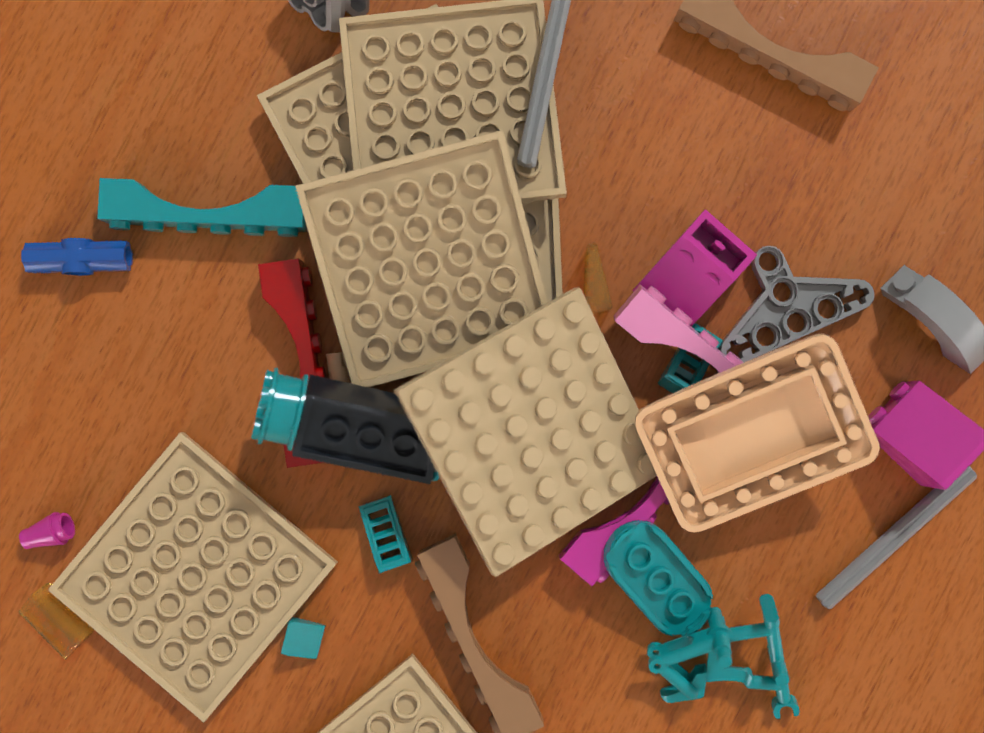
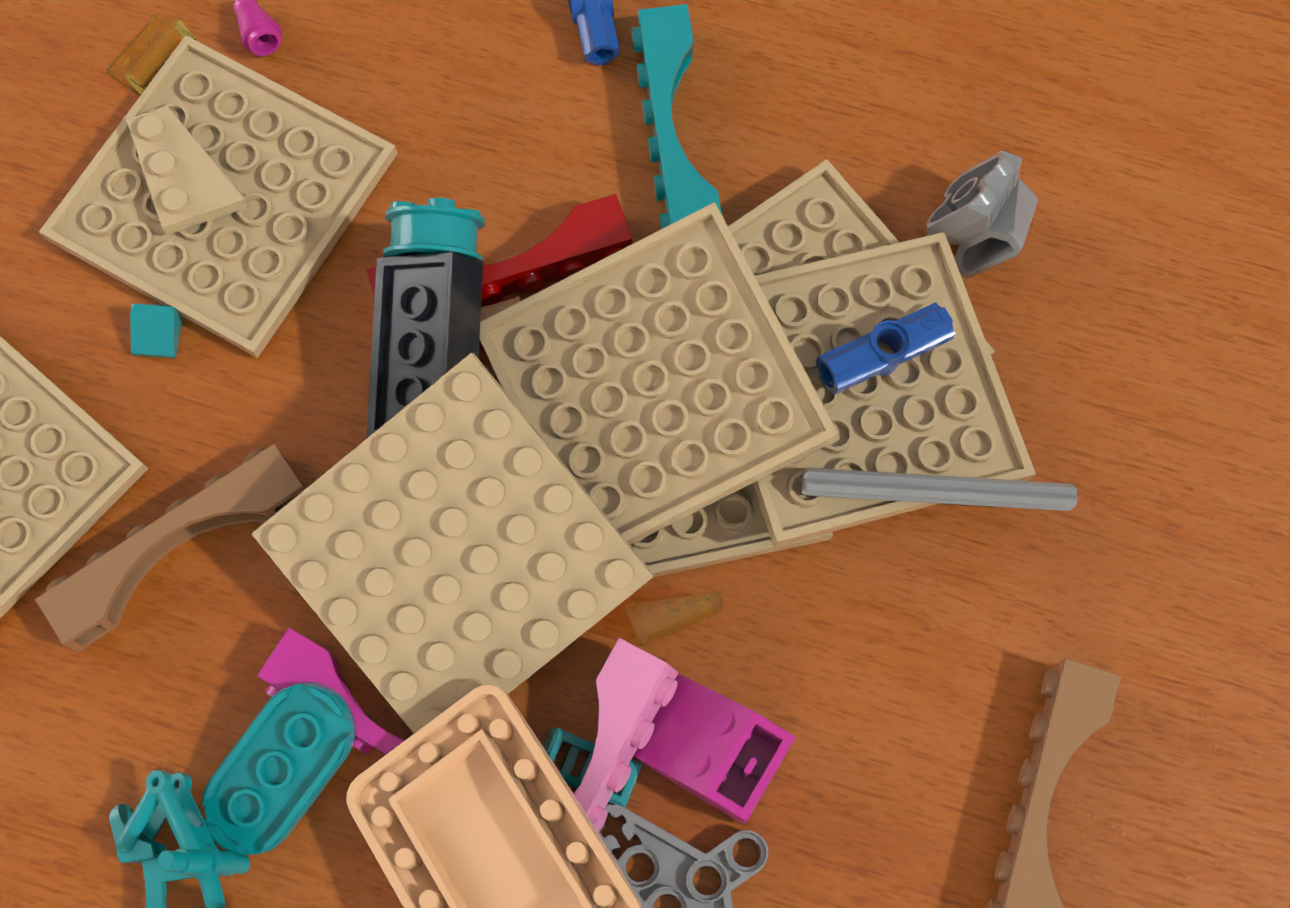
camera: 75 degrees right, 15 degrees down
(175, 606) = (179, 173): none -> tan wing
(373, 537) = (292, 428): teal slope -> none
(429, 64) = (864, 359): none -> blue piece

